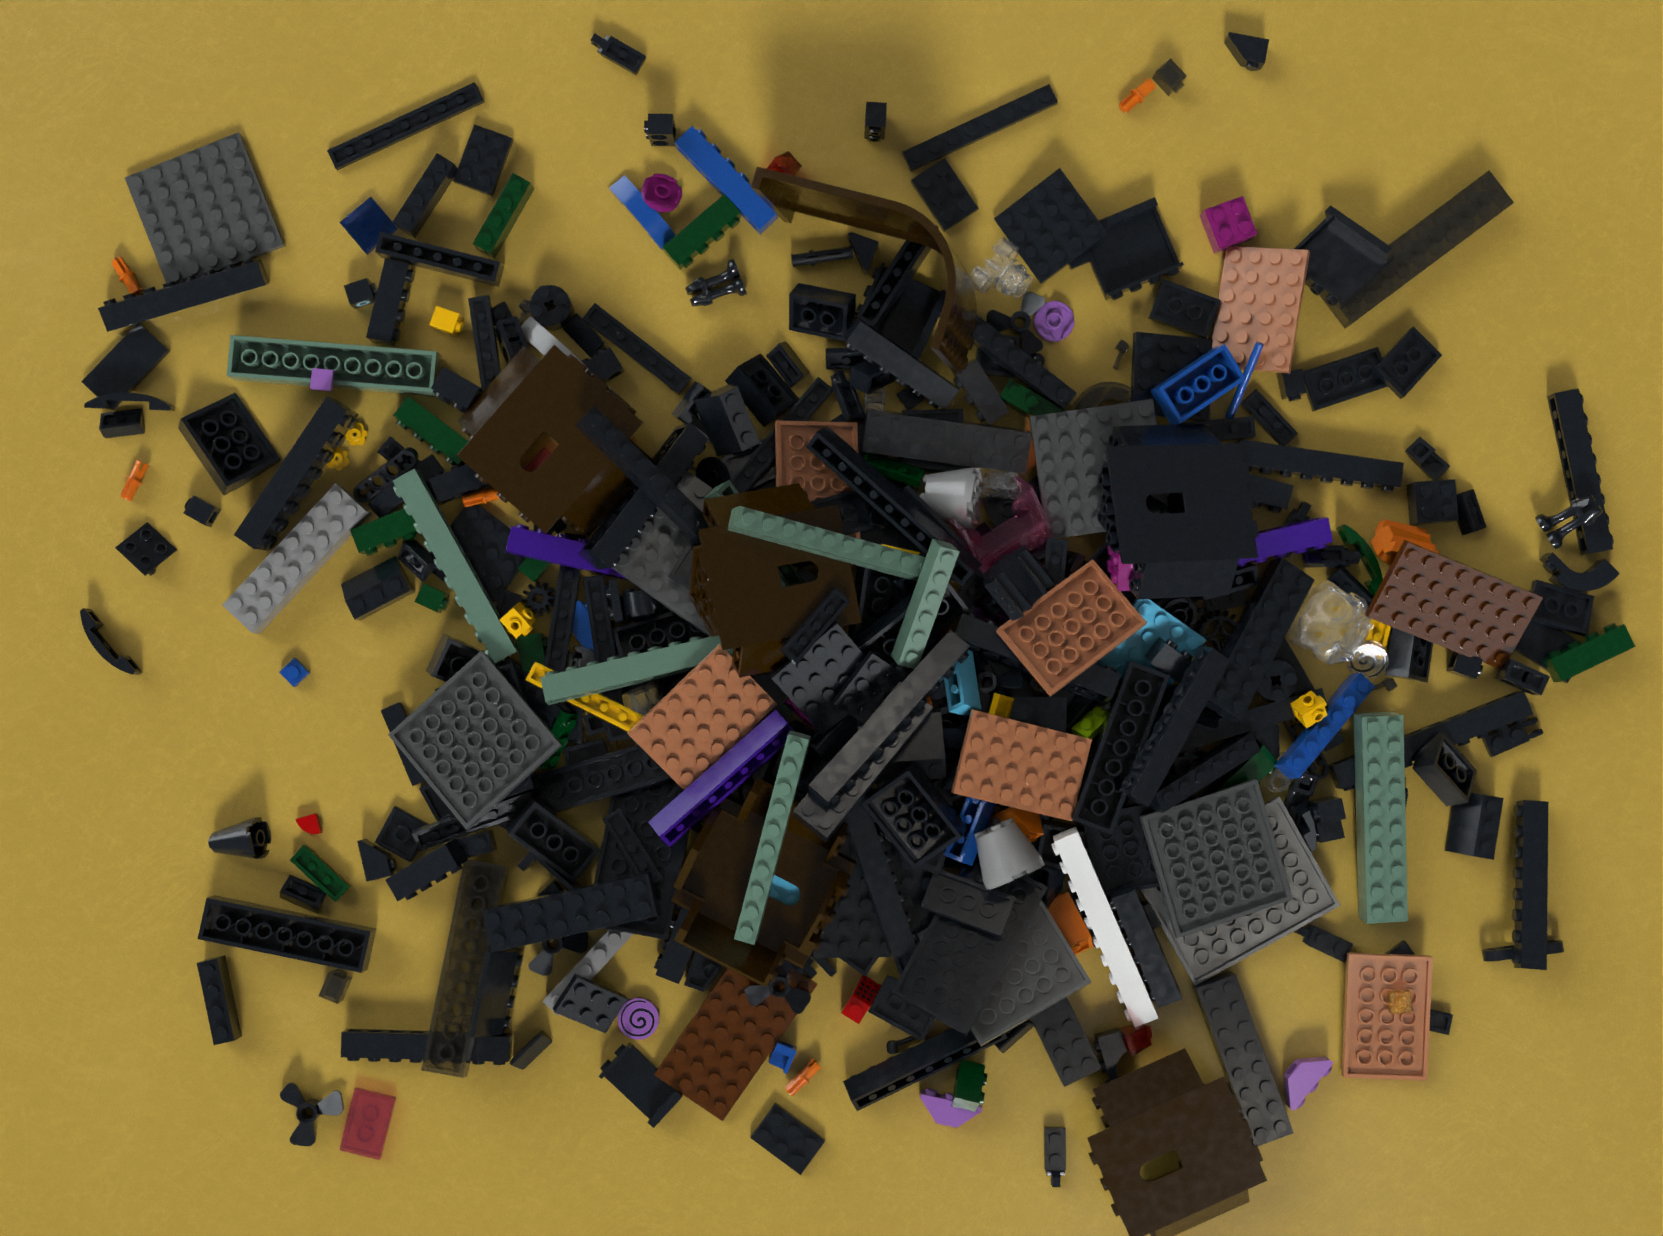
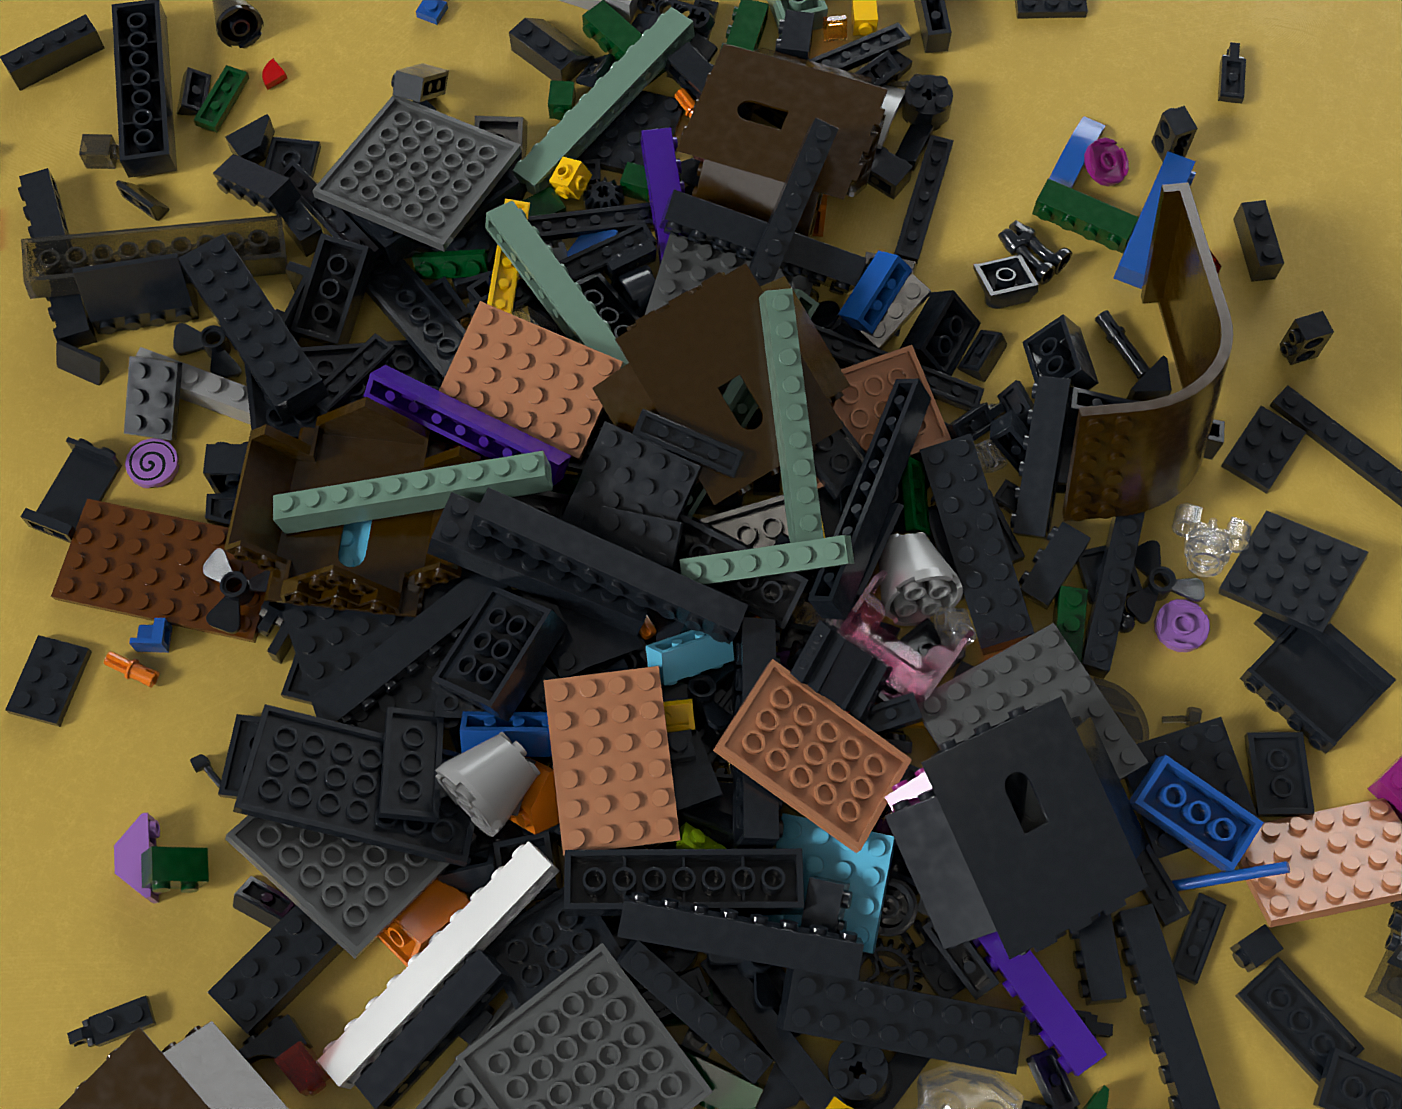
camera: 75 degrees right, 20 degrees down
(379, 709) = (420, 82): none -> black brick
(394, 962) = (142, 200): none -> black slope
(449, 350) = (835, 28): none -> clear orange tile
(503, 216) = (1002, 28): dark green brick -> none
(720, 428) = (875, 291): none -> blue brick
(736, 319) = (1006, 281): none -> black slope
(776, 111) = (1258, 240): none -> black brick
(860, 999) = (246, 697): red slope -> none
(912, 1066) = (183, 795): black brick -> none

